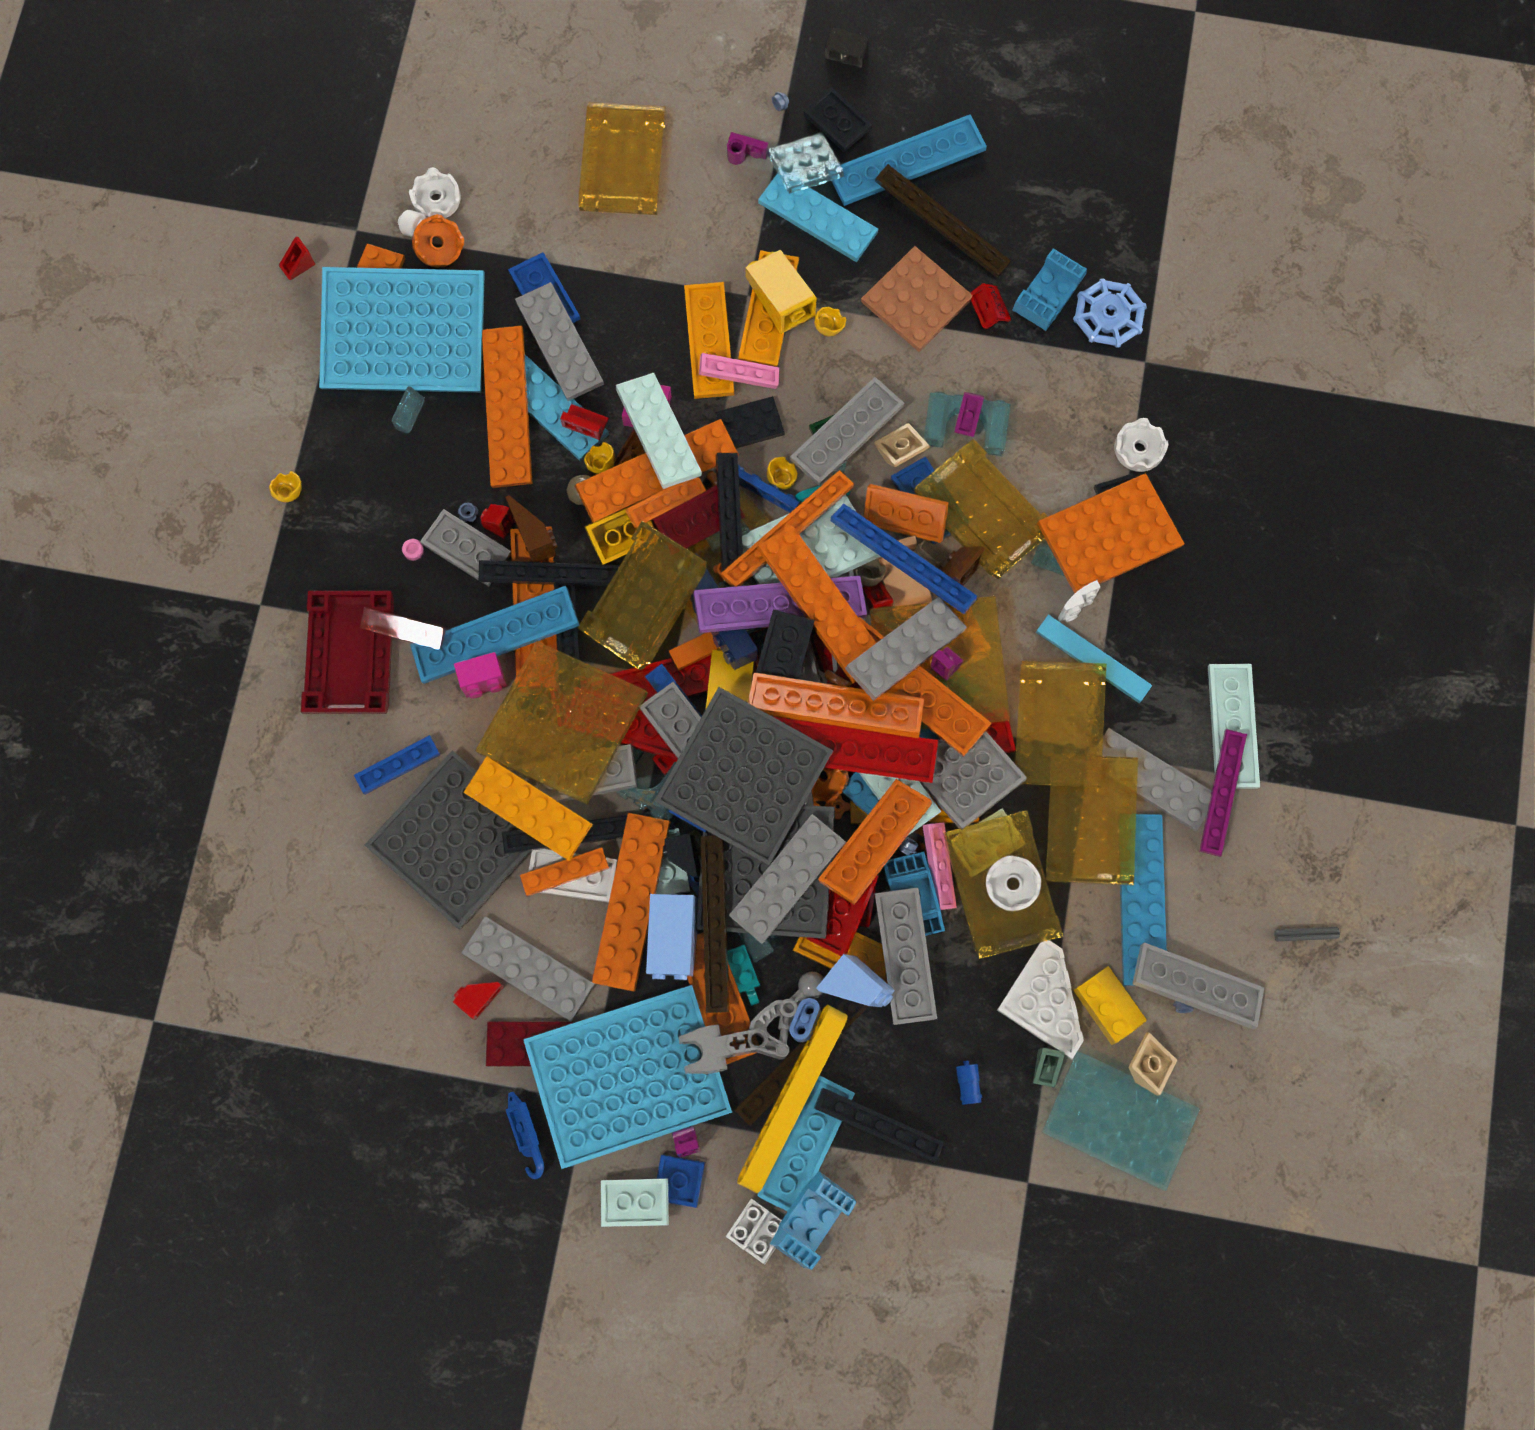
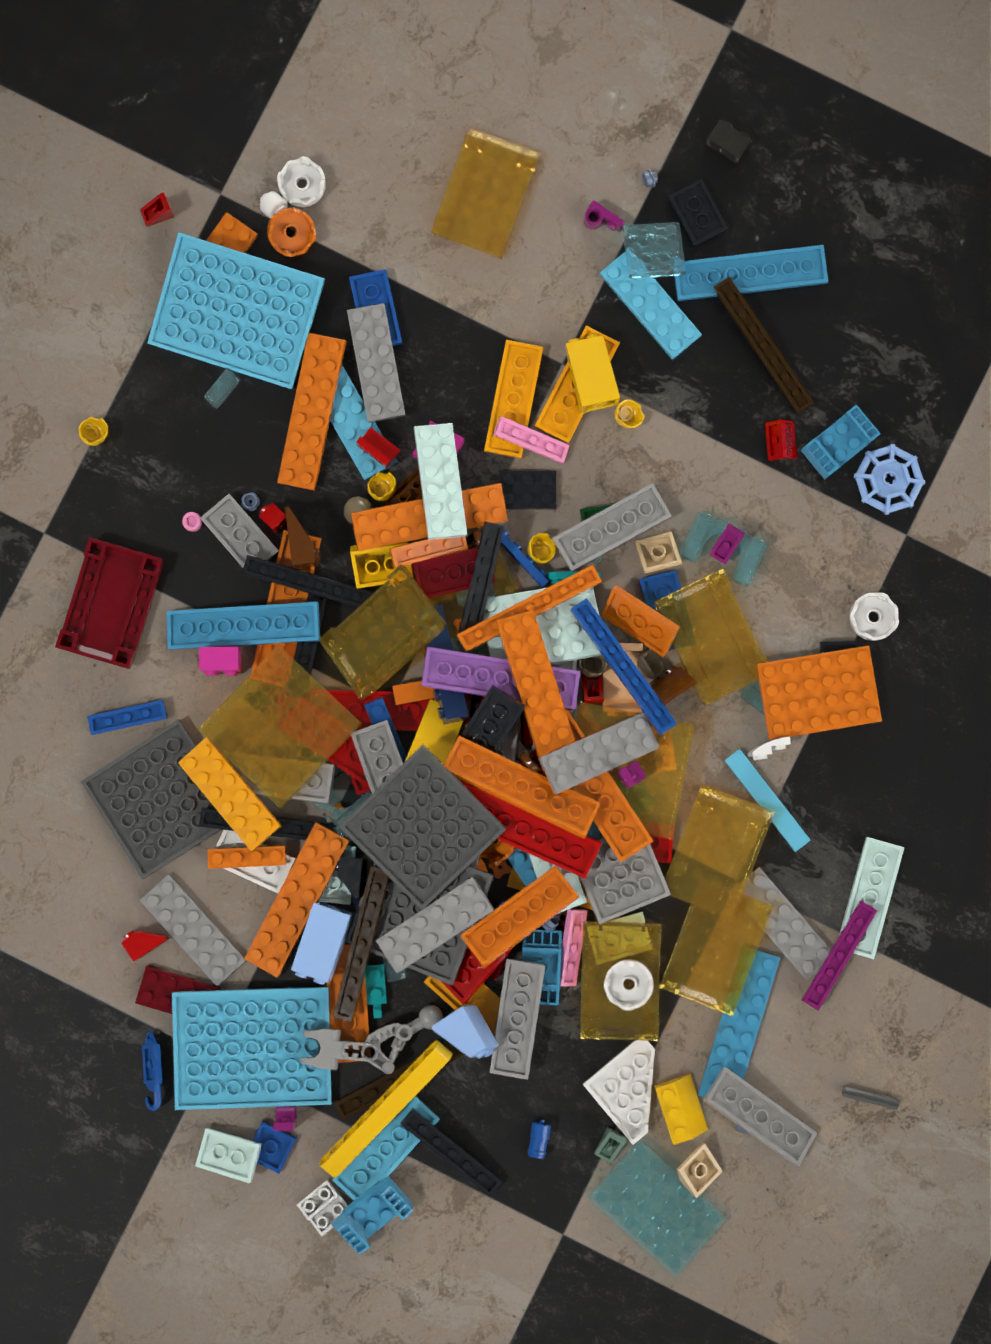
camera: 10 degrees right, 10 degrees up
(403, 628) = (163, 597): plate -> none
(805, 1021) = (413, 1045): medium blue plate -> none
(916, 298) = (716, 413): nougat plate -> none

